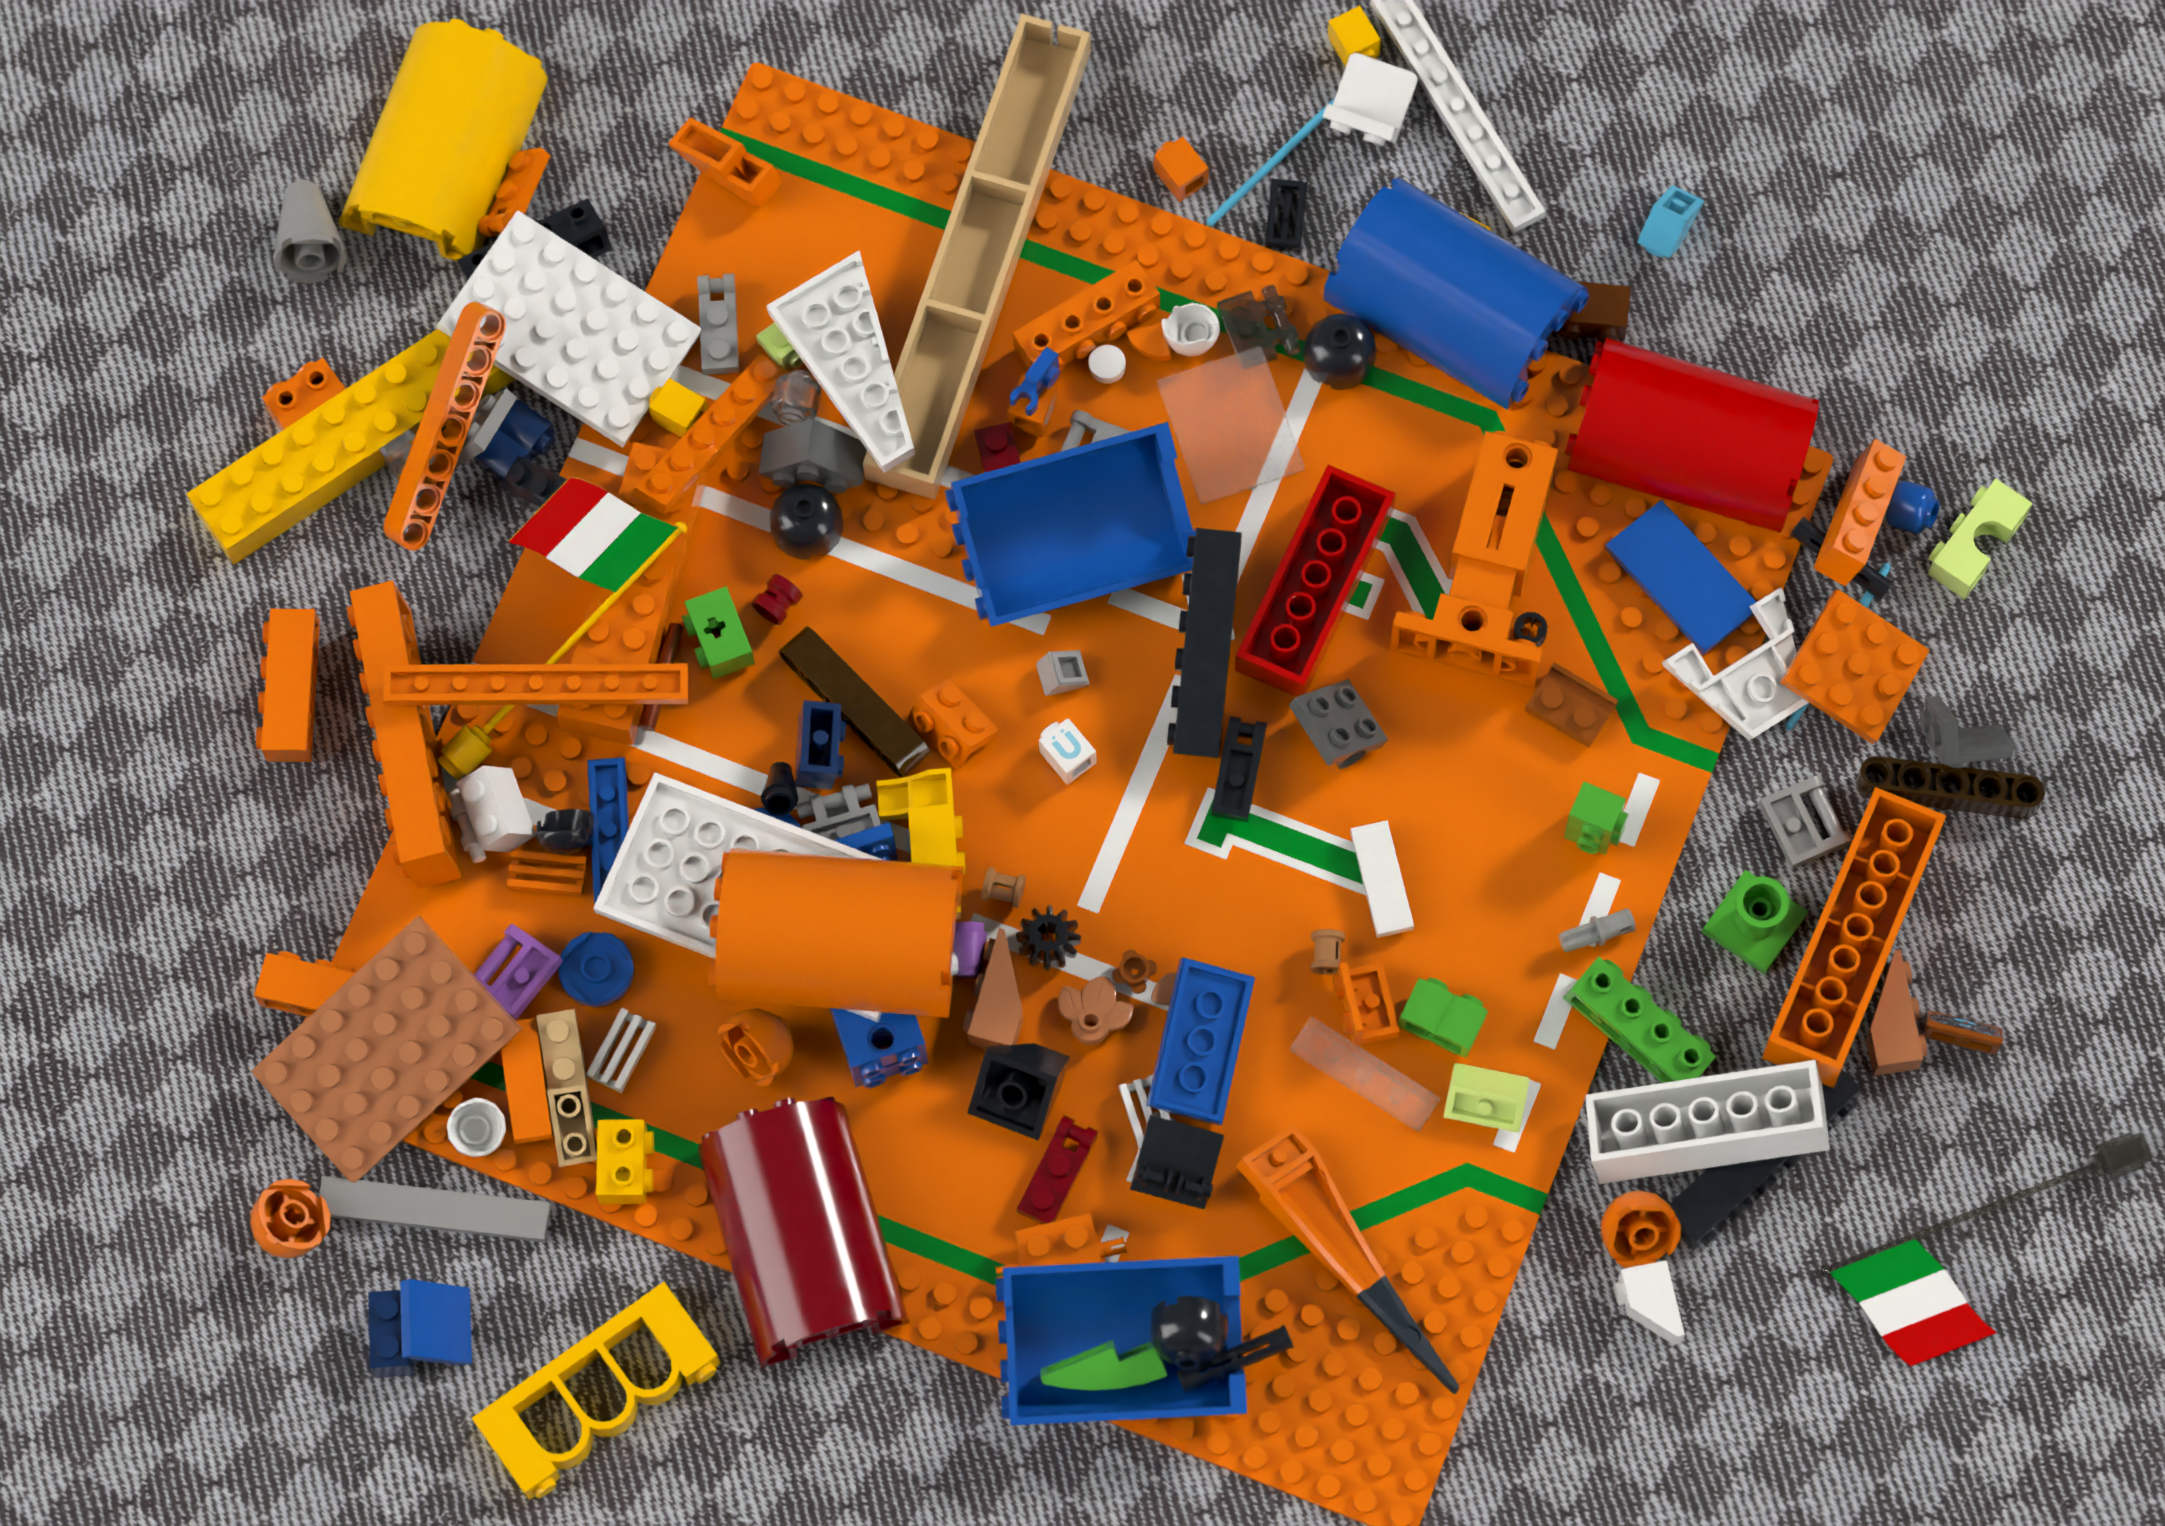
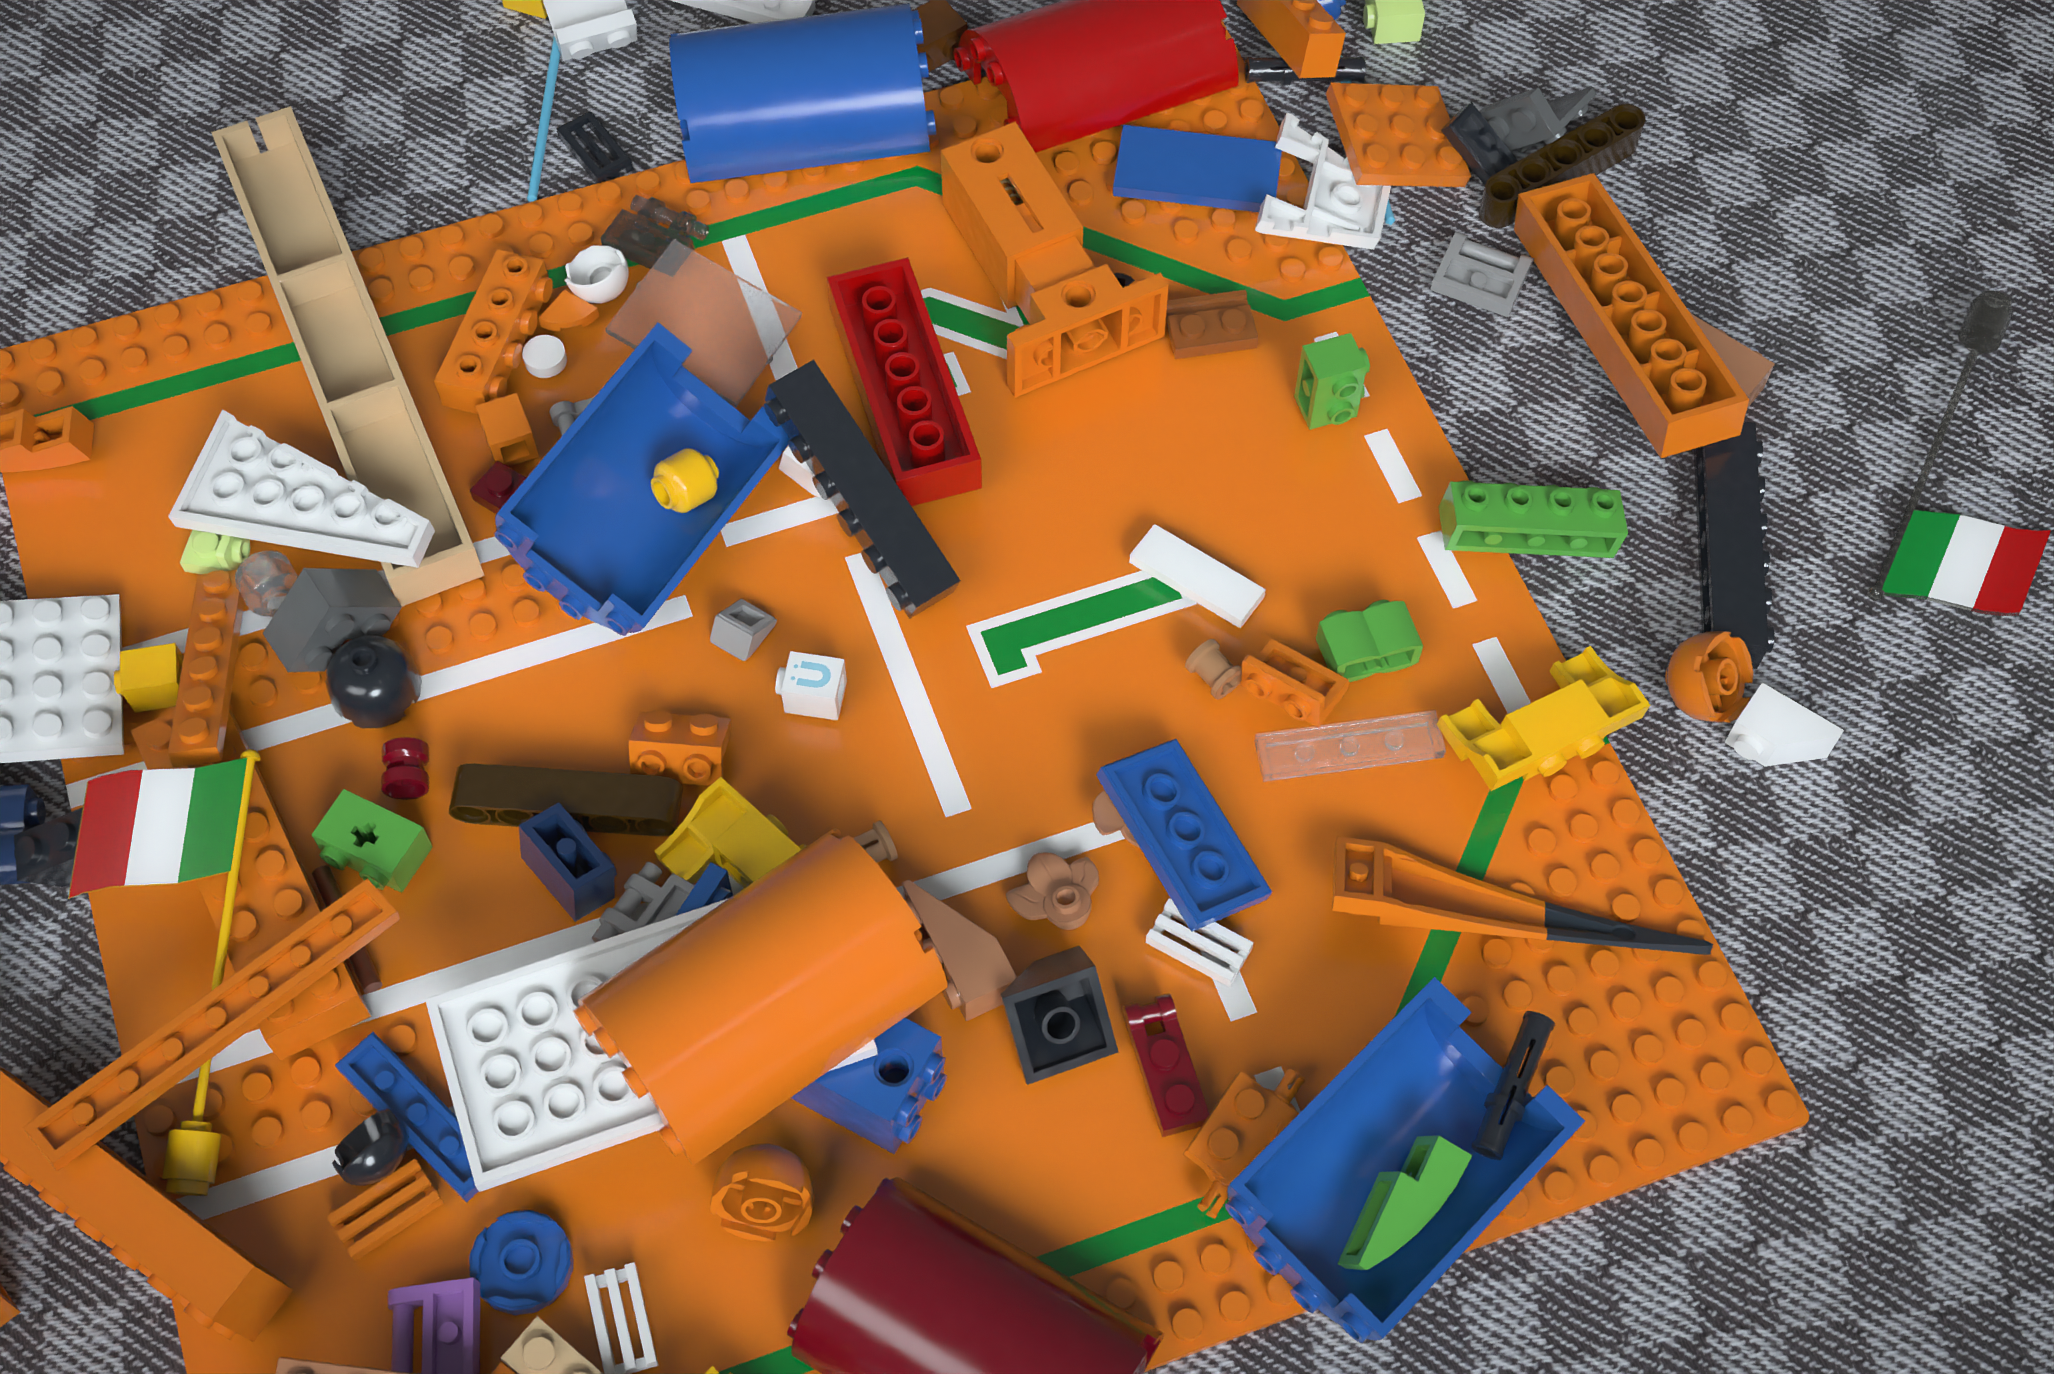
camera: 45 degrees left, 10 degrees down
(490, 812) = (274, 1189): white brick -> none
(718, 325) = (134, 582): light grey plate -> none
(780, 791) = (563, 930): black cone -> none
(1040, 375) = (496, 387): blue plate -> none
(1047, 952) = (971, 854): black gear -> none
(1109, 540) = (685, 480): none -> yellow head
(1130, 961) = (1057, 813): dark orange plate -> none
(1177, 1162) = (1270, 958): black hinge -> none
(1180, 168) = (468, 171): orange brick -> none
(1188, 1331) = (1458, 1093): black cylinder -> none
(1238, 770) = (987, 585): black plate -> none
(1338, 723) = (1036, 477): dark grey plate -> none
(1339, 351) = (744, 203): black cylinder -> none
(1486, 1097) = (1480, 671): yellowish green panel -> none
(1497, 1173) = (1550, 729): none -> yellow bracket
(1598, 930) = (1418, 472): light grey axle -> none
(1707, 1122) = (1678, 539): white brick -> none
(1754, 937) = (1528, 369): bright green plant -> none
(1902, 723) = (1478, 143): none -> black plate
(1962, 1032) = (1777, 328): dark orange slope -> none

